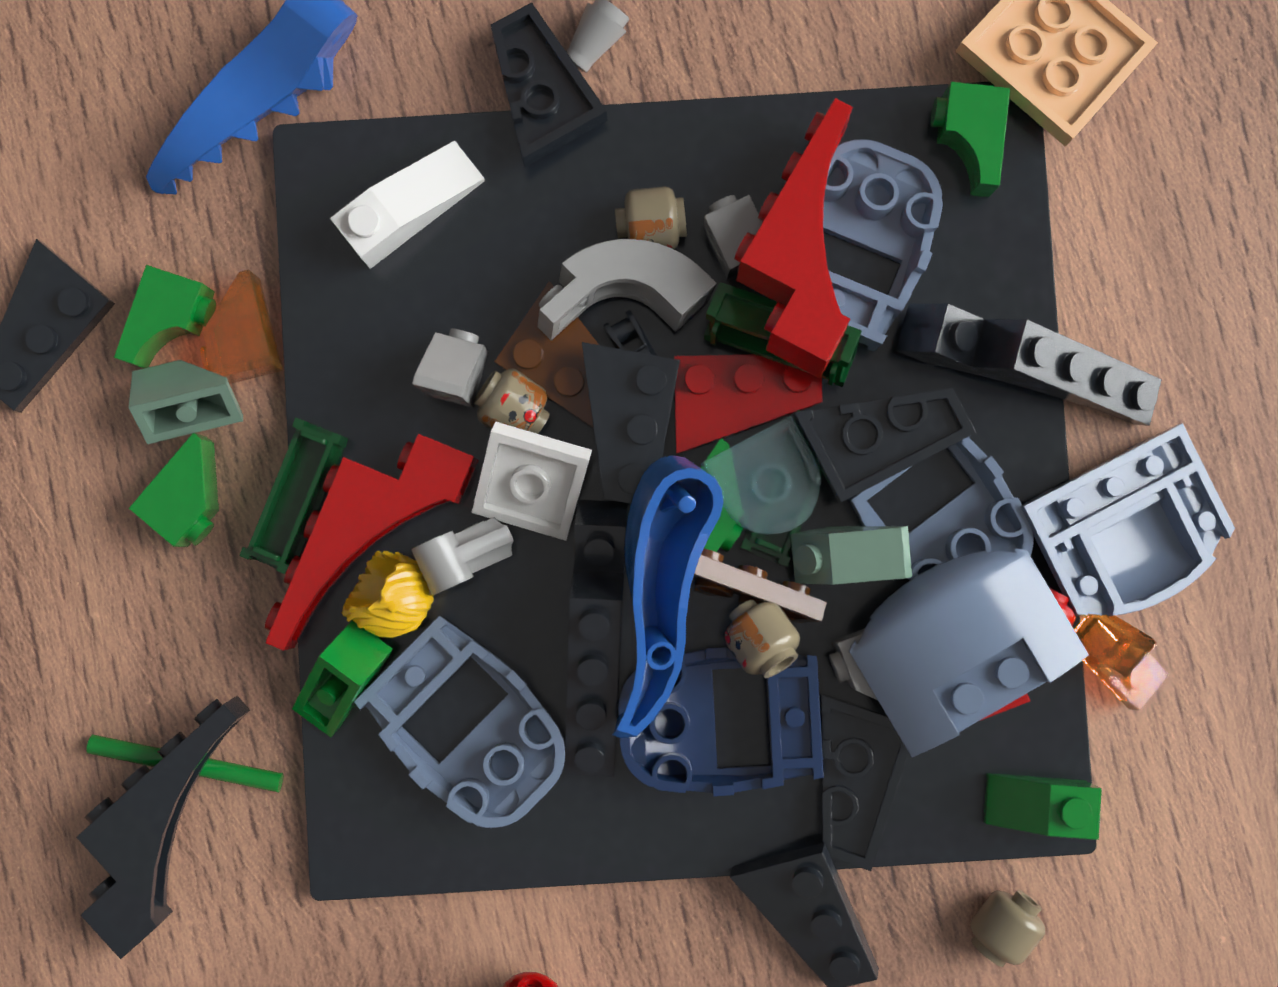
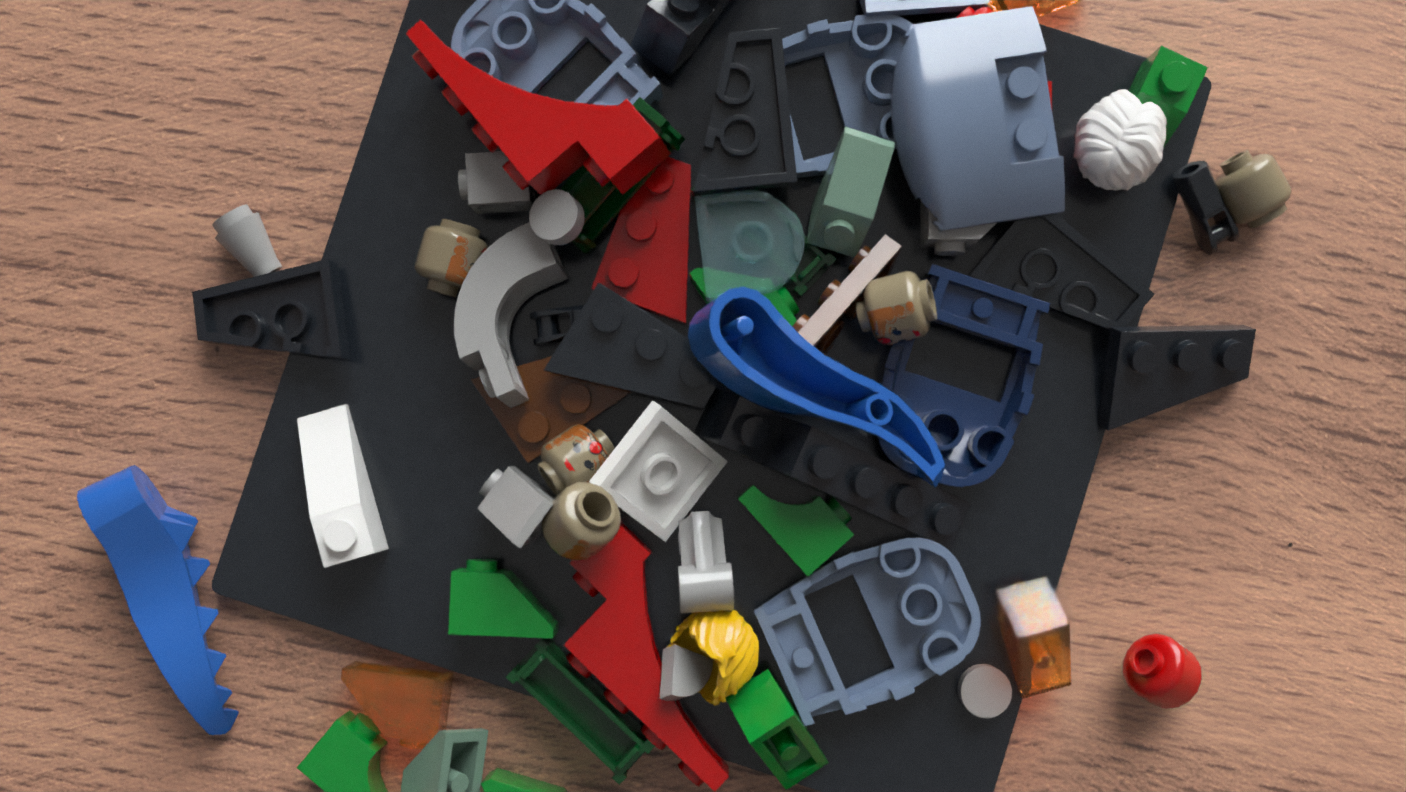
camera: 70 degrees left, 0 degrees up
(357, 383) = (495, 604): none -> green slope
(359, 573) = (683, 673): none -> light grey tile
(449, 854) = (984, 690): none -> light grey tile
(458, 428) = (581, 521): none -> dark tan head
(515, 881) = (1035, 636): none -> clear orange slope
(529, 631) = (805, 530): none -> green arch
(722, 299) = (556, 217): none -> light grey tile
(976, 886) = (1202, 202): none -> black bar
(998, 785) = (1120, 141): none -> white hair

